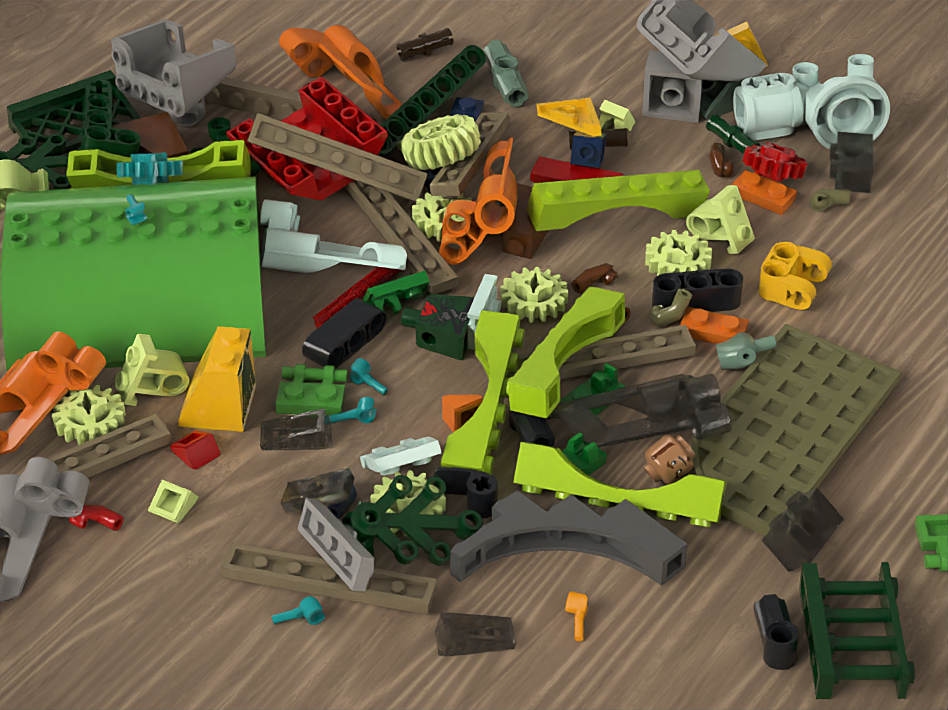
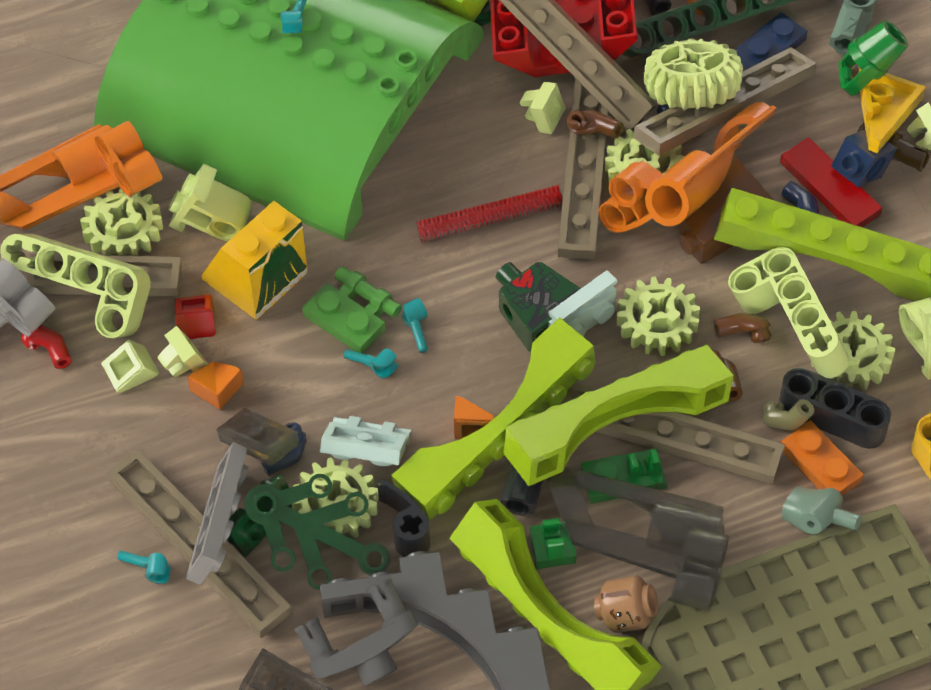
camera: 35 degrees right, 15 degrees up
(89, 455) = (75, 274): none -> yellowish green beam
(212, 470) = (180, 354): none -> yellowish green tile
(251, 479) = (216, 383): none -> orange slope
(302, 252) = (457, 125): light aqua panel -> none
(309, 432) = (319, 365): clear smoke slope -> none
(344, 212) = (544, 106): none -> yellowish green tile
(344, 333) = (430, 259): black beam -> none
(389, 204) = (593, 122): none -> reddish brown arm
(408, 287) = (536, 237): green plate -> none
(520, 580) = (368, 655): none -> dark grey connector
(545, 83) = (873, 54): none -> green piece
(606, 231) = (781, 279): none -> yellowish green beam

